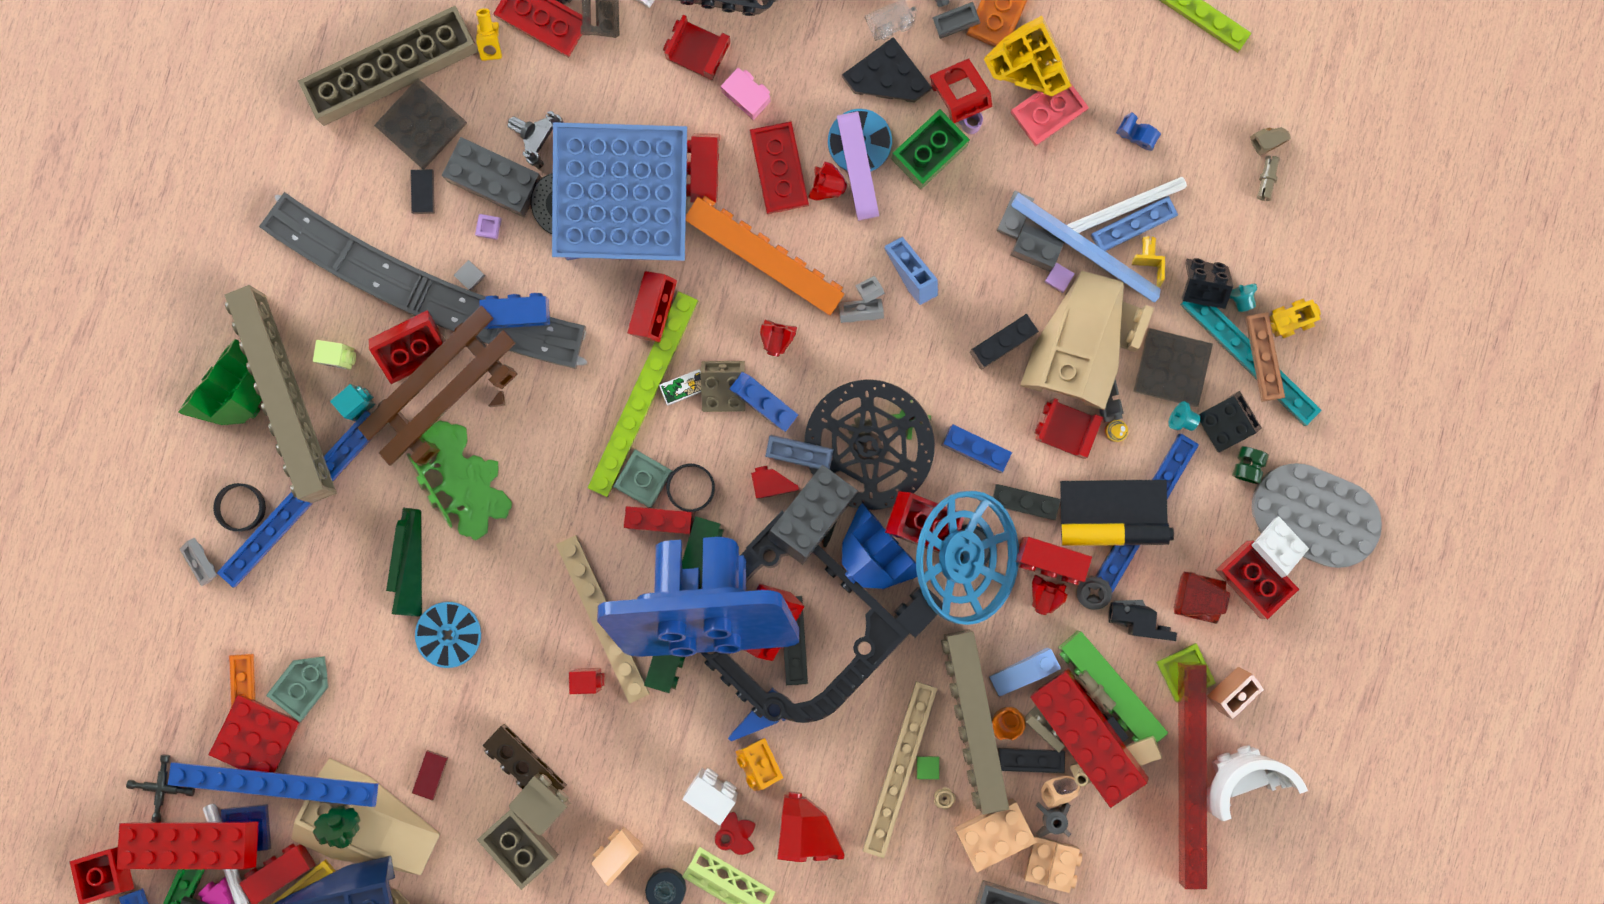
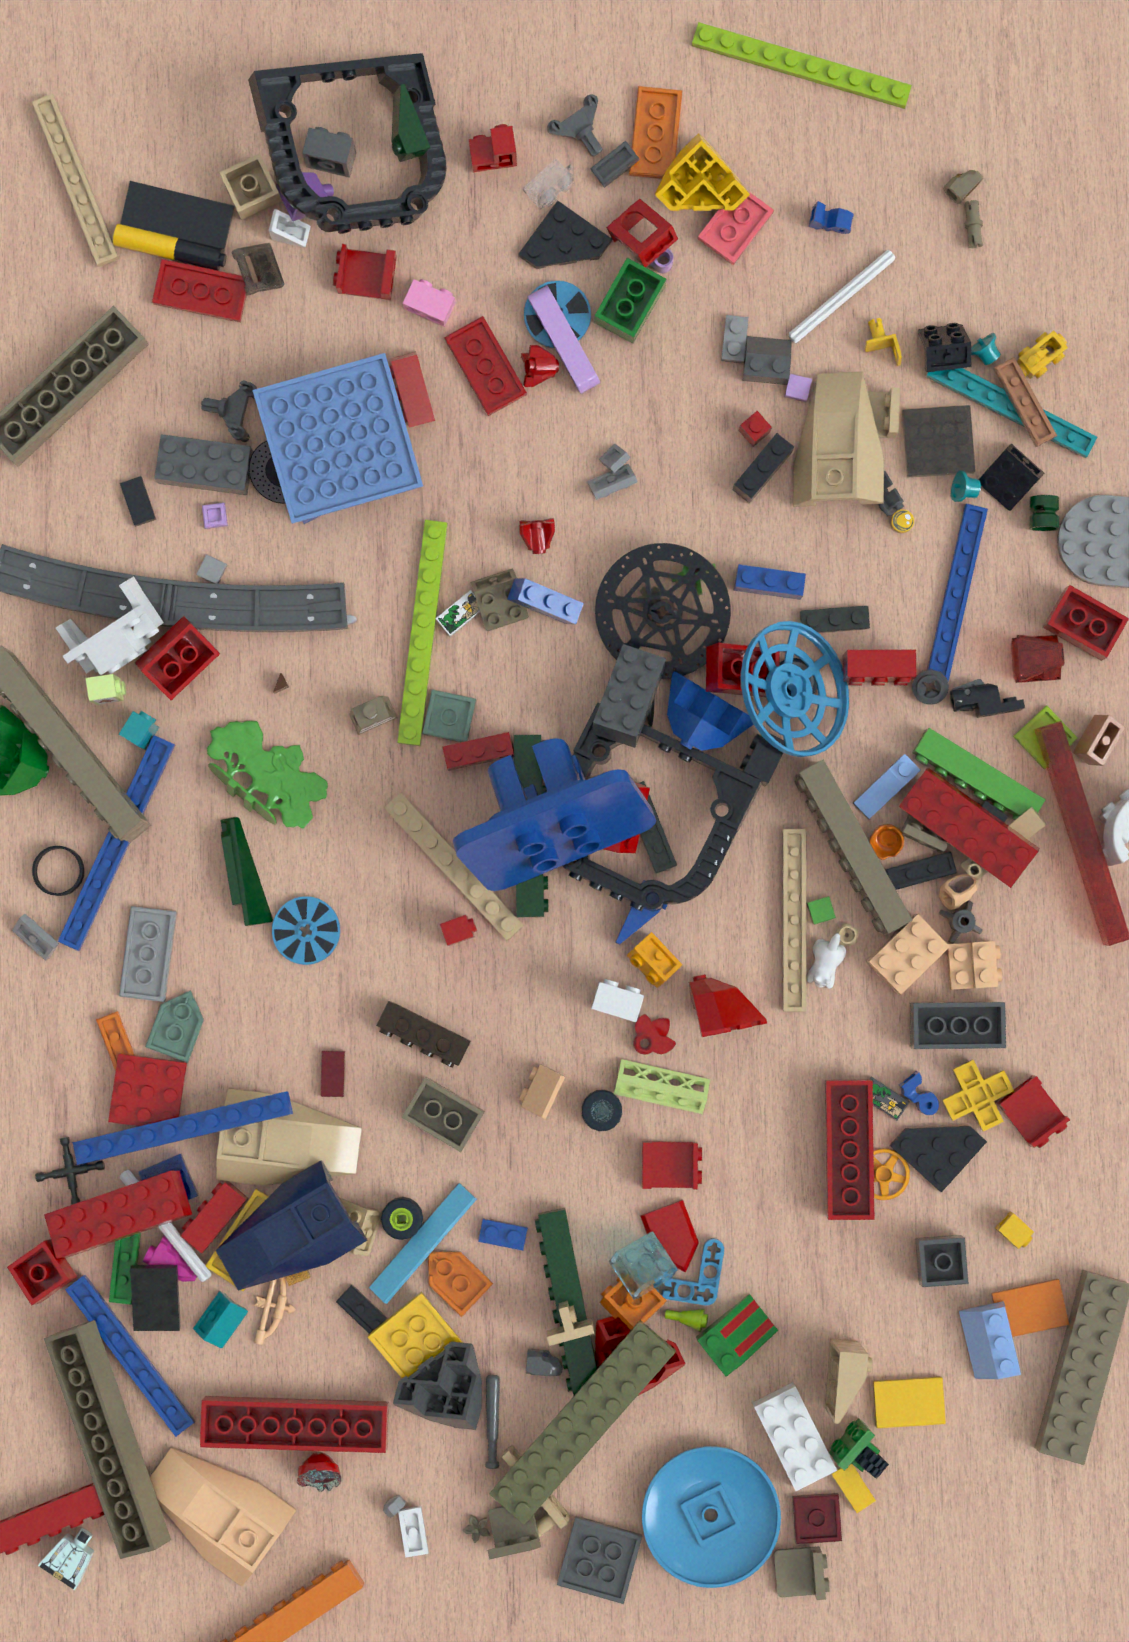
camera: 15 degrees left, 0 degrees up
(296, 610) = (148, 954): none -> light grey tile
(337, 827) = (262, 1145): dark green plant -> none
(356, 316) = (117, 642): none -> white piece
(411, 432) = (207, 743): reddish brown fence -> none
(420, 124) = (114, 434): clear smoke plate -> none
(487, 35) = (153, 325): yellow bracket -> none
(517, 311) = (271, 589): blue brick -> none
(539, 803) = (452, 1062): dark tan bracket -> none
(573, 455) = (372, 714): none -> dark tan torso
(652, 306) = (404, 542): red brick -> none
(669, 481) = (497, 687): black tyre -> none
(765, 256) = (500, 457): orange brick -> none
(771, 483) = (578, 679): red slope -> none
(798, 452) = (595, 641): sand blue tile -> none
(913, 271) = (651, 426): medium blue slope -> none
(918, 816) = (827, 958): none -> white animal
(1007, 303) = (755, 428): none -> red brick
(1047, 595) = (884, 704): red brick -> none
(1068, 429) = (853, 534): red panel -> none
(1086, 247) = (815, 349): light blue tile -> none
(1095, 691) = (961, 780): dark tan pin -> none
(1114, 513) = (925, 602): black door -> none
(1135, 224) = (855, 312): medium blue tile -> none
(1280, 547) = (1097, 583): white plate -> none

